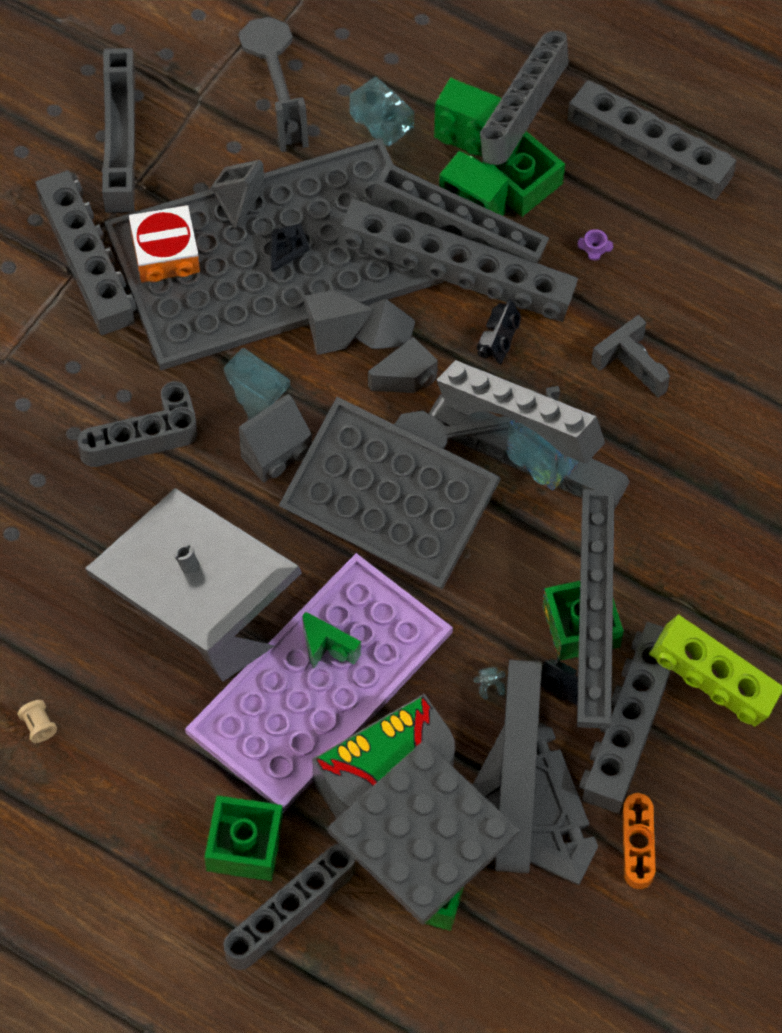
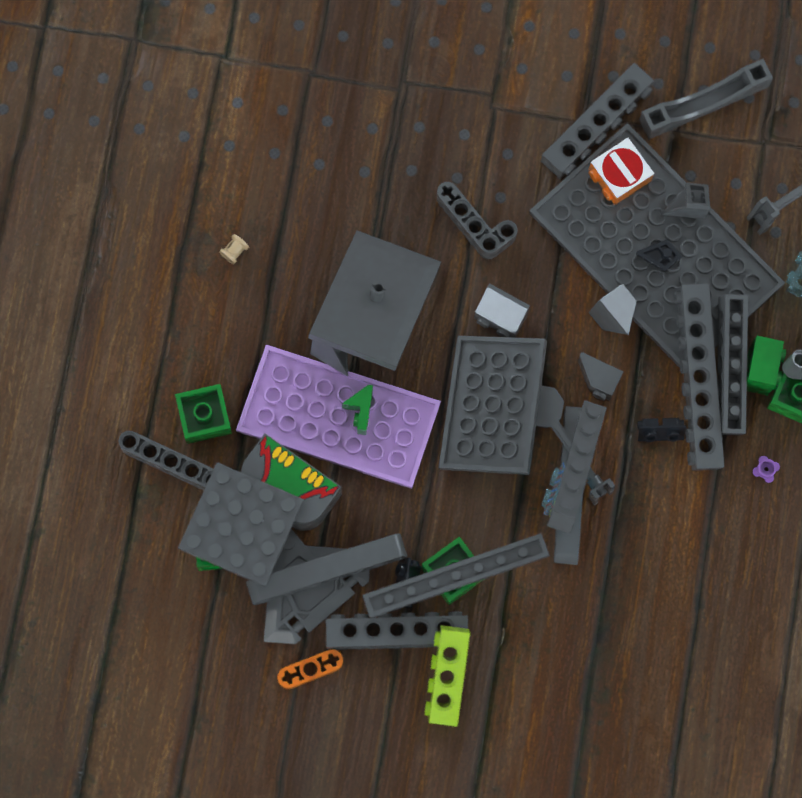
camera: 65 degrees right, 15 degrees up
(254, 382) = (545, 279): clear light blue wing -> none
(386, 326) = (626, 350): dark grey slope -> none
(488, 677) = (387, 526): clear light blue plate -> none
(625, 346) = (682, 531): dark grey bracket -> none

